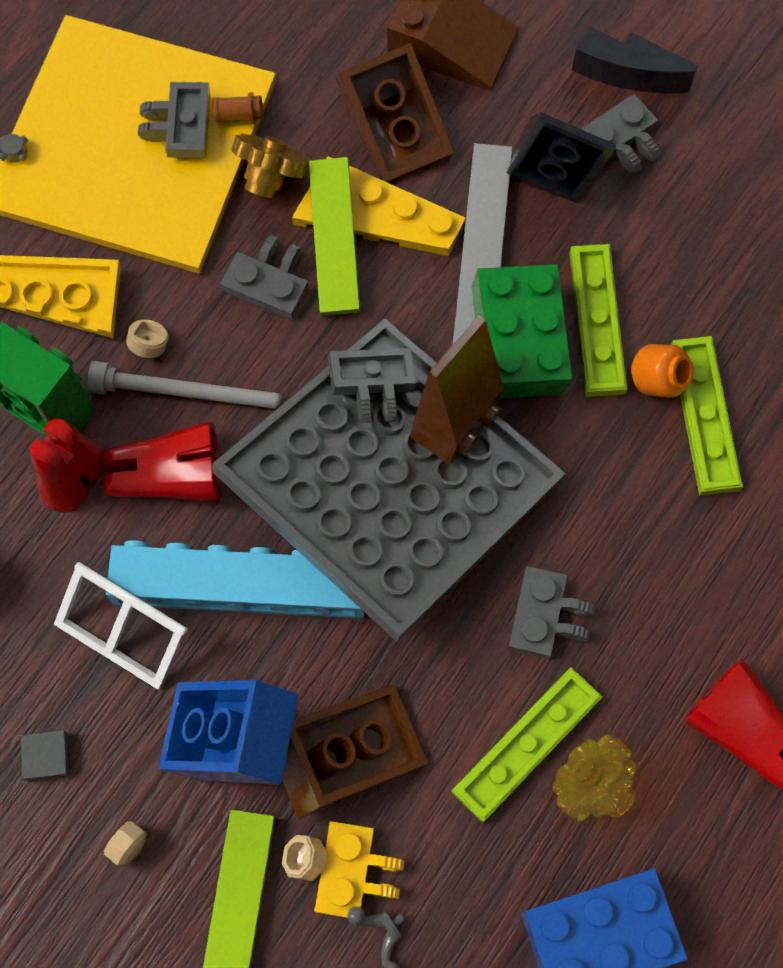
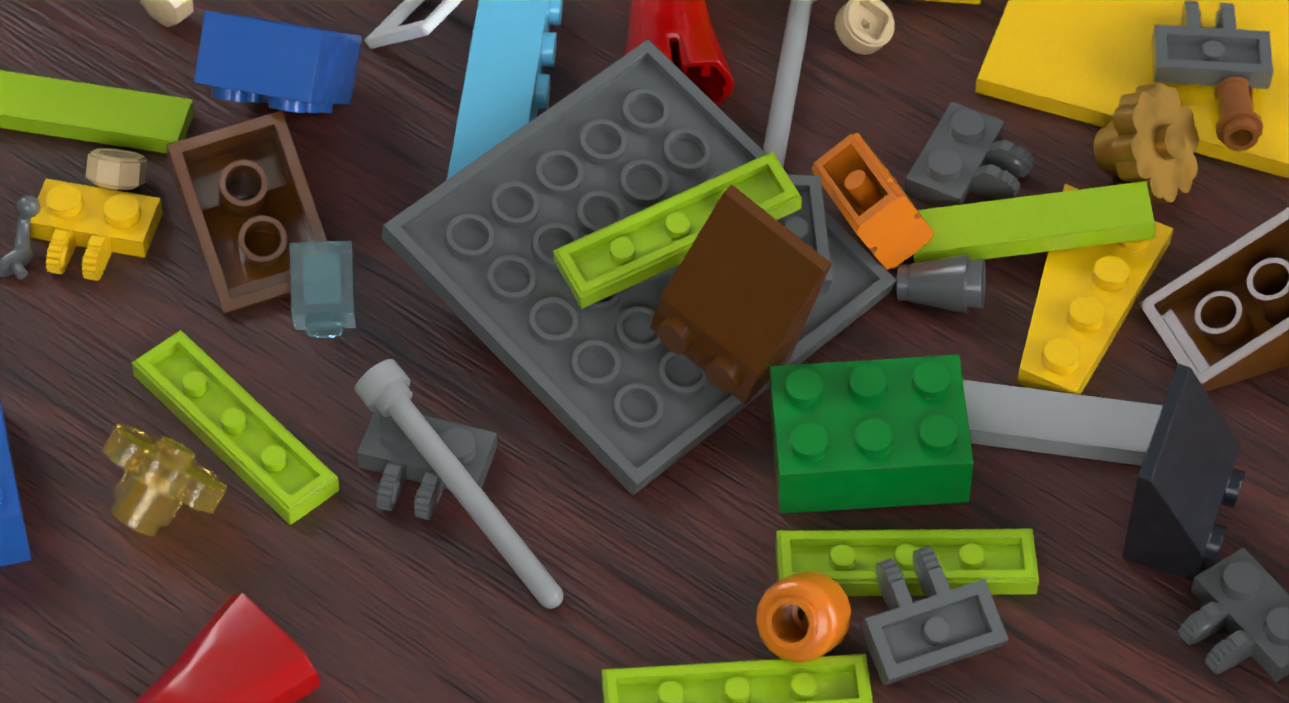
camera: 90 degrees right, 20 degrees down
(330, 327) = (872, 201): none -> orange brick
(381, 290) = (944, 283): none -> dark grey cone
(388, 439) = (665, 231): none -> lime tile
(418, 688) = (323, 287): none -> clear light blue brick
(519, 631) = (387, 391): none -> light grey piece
(655, 300) = (931, 630): none -> dark grey hinge

